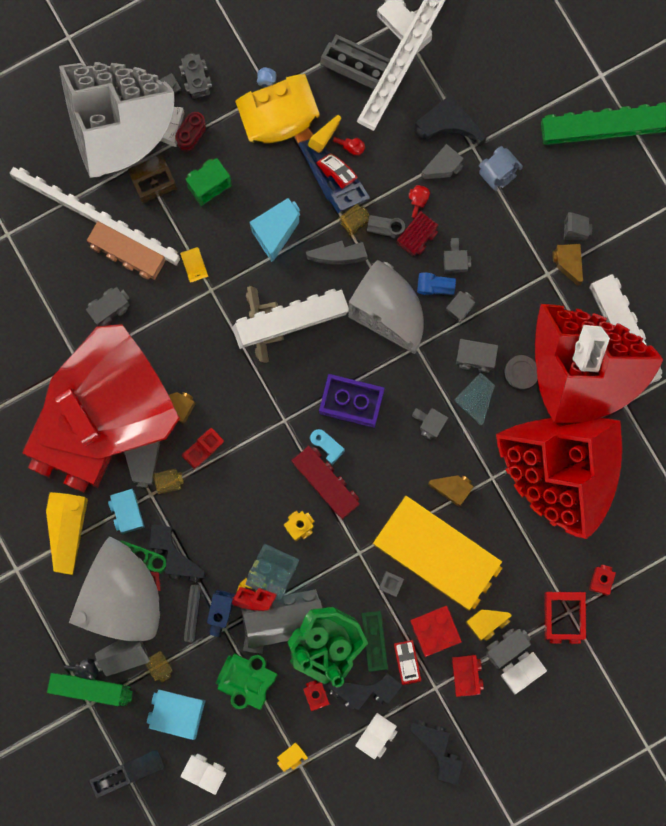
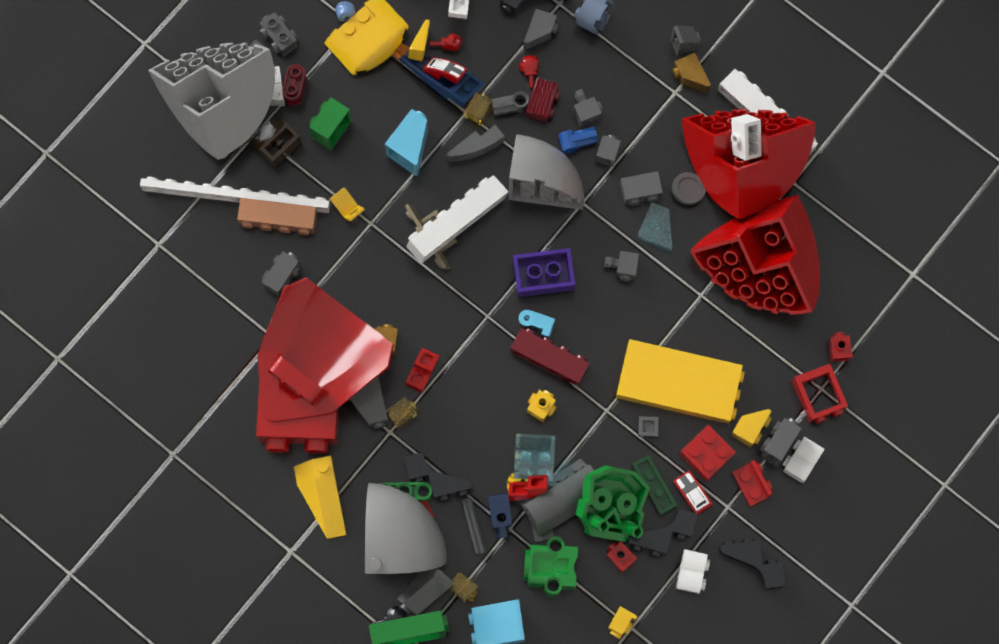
camera: 25 degrees left, 5 degrees down
(126, 511) = (374, 455): medium azure brick -> none
(453, 488) = (668, 317): pearl gold slope -> none

